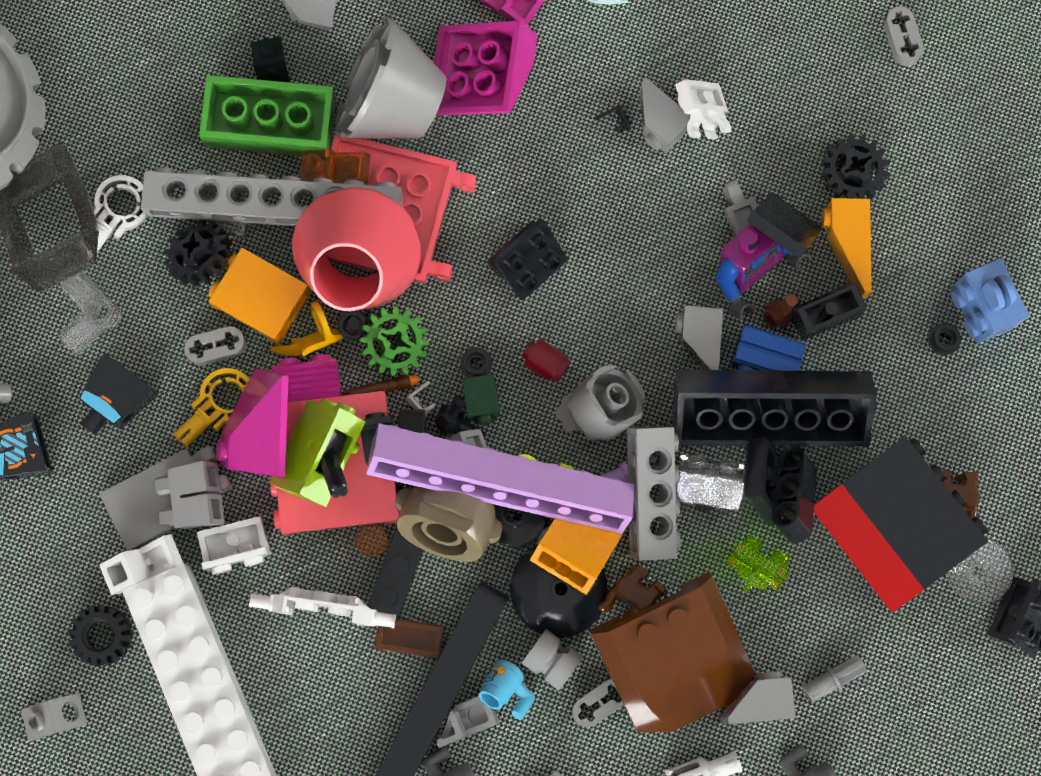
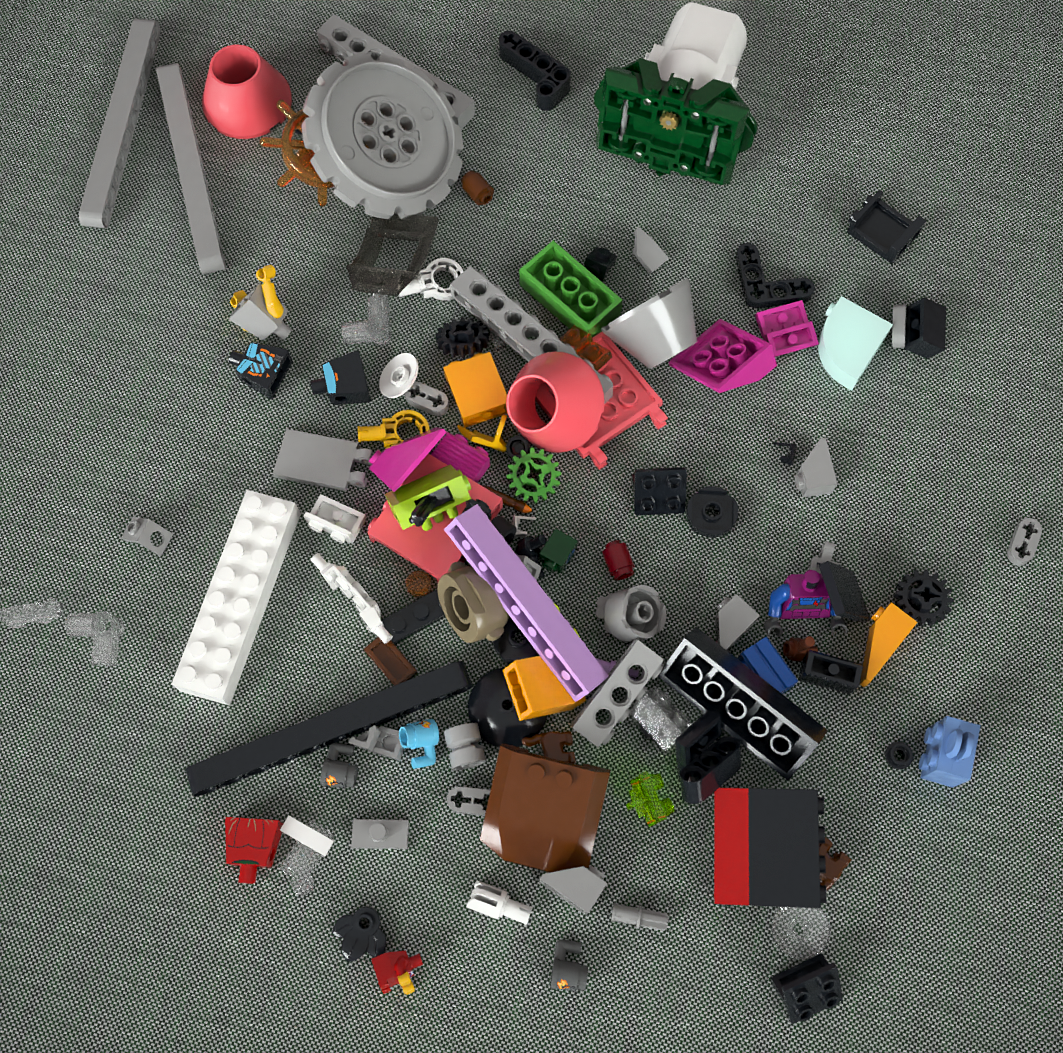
camera: 45 degrees right, 10 degrees down
(69, 72) = (477, 188): none -> reddish brown brick
(81, 630) = (212, 495): black tyre -> none
(140, 564) = (269, 483): white brick -> none
(167, 345) = (398, 375): none -> white dish
(186, 509) = (335, 468): light grey hips -> none
(476, 353) = (574, 522): black plate -> none
(597, 221) = (712, 526): none -> black plate
(705, 105) = (850, 483): white plate -> none

